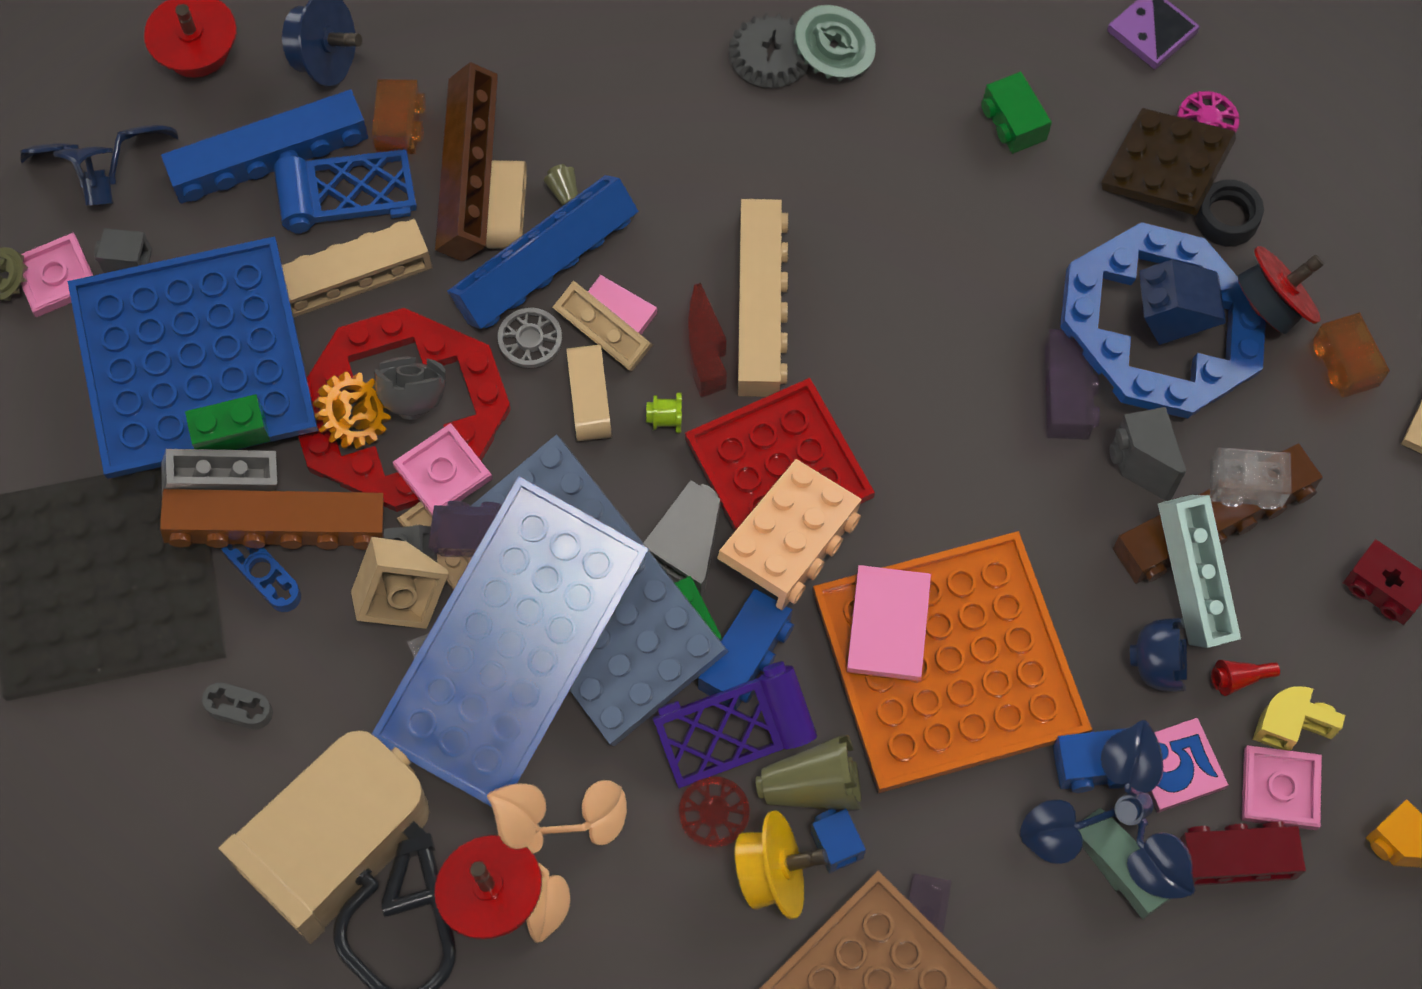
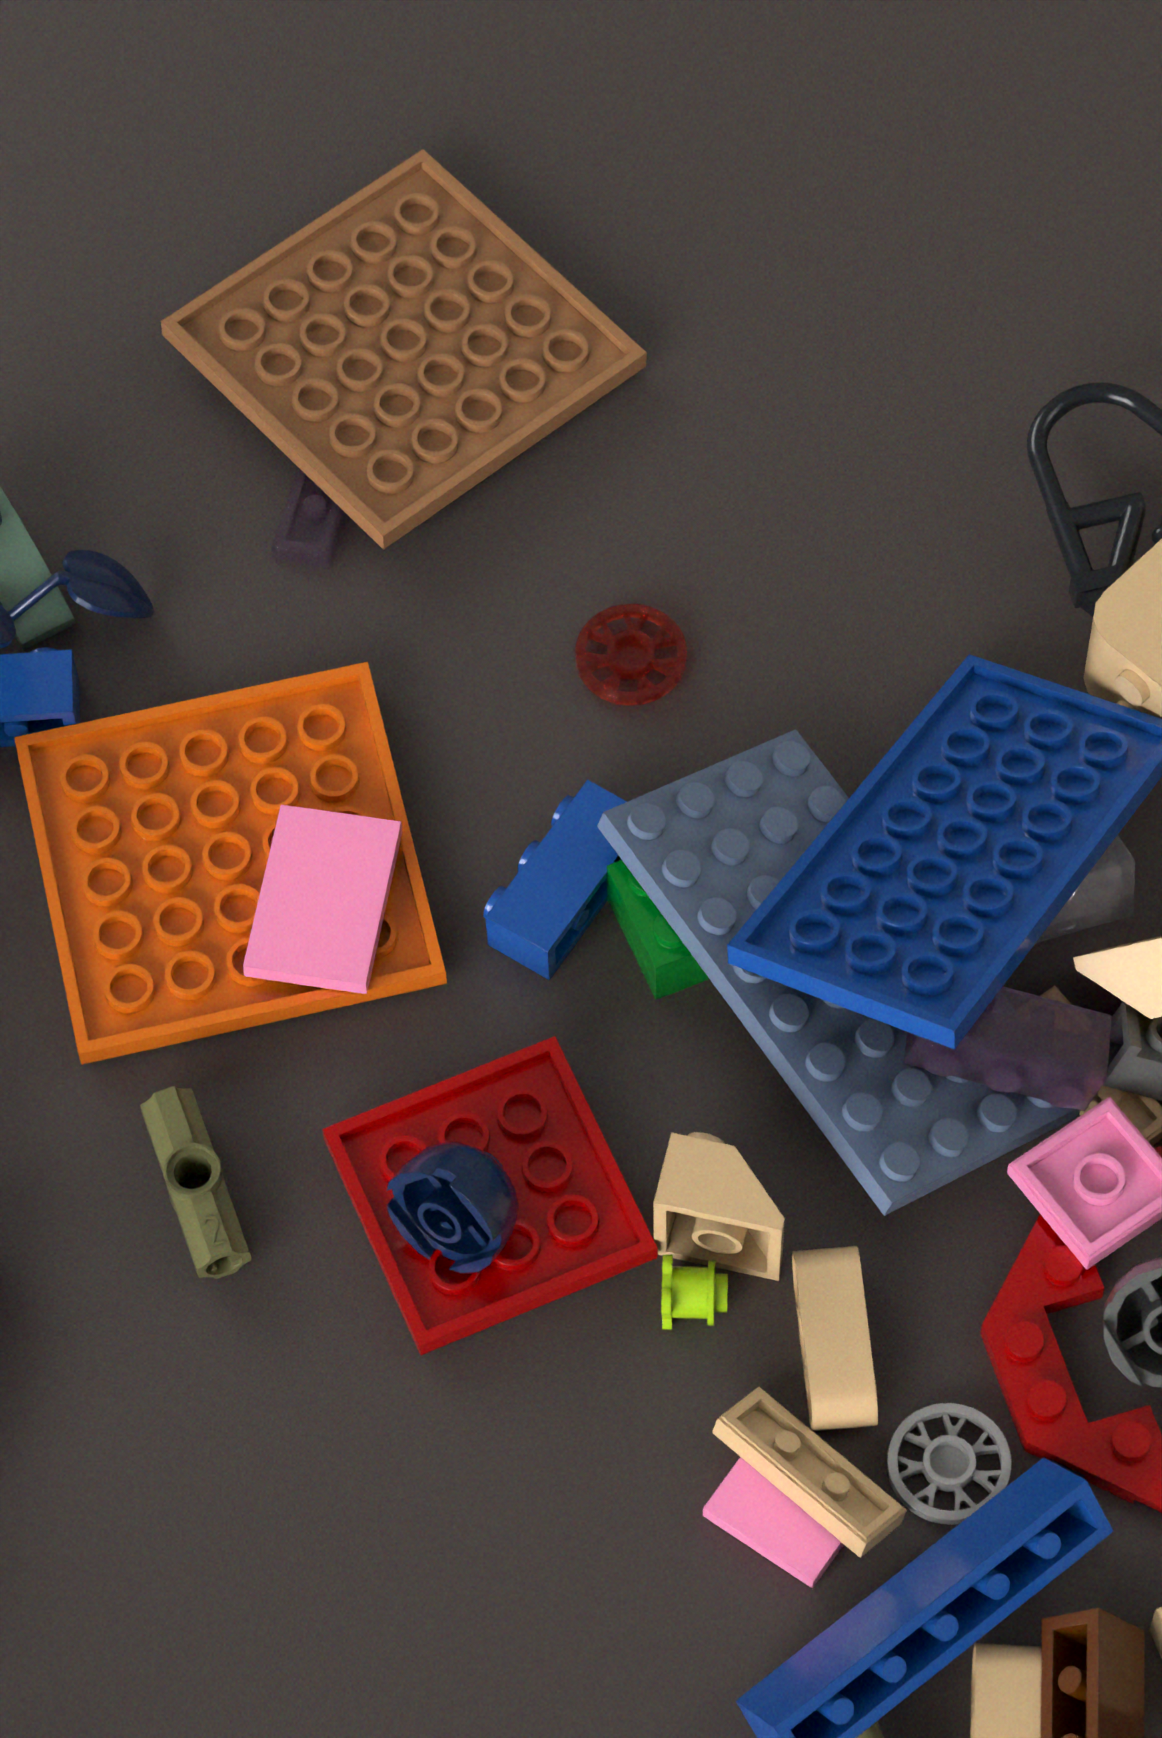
camera: 175 degrees left, 5 degrees down
(488, 888) = (981, 512): red piece -> none
(517, 815) = (926, 601): light nougat plant -> none
(653, 441) = (716, 1209): none -> tan slope
(687, 535) = (661, 1065): light grey slope -> none
(706, 345) = (612, 1423): clear red slope -> none
(760, 298) = (500, 1522): tan brick -> none
(772, 867) = (544, 536): yellow piece -> none
(782, 708) = (521, 770): dark purple piece -> none
(792, 532) = (477, 1028): light nougat bracket -> none
(793, 433) = (454, 1203): none -> dark blue cylinder
(814, 778) = (469, 671): olive cone -> none
(839, 838) = (441, 597): blue brick -> none
(951, 480) = (203, 1212): none -> olive piece

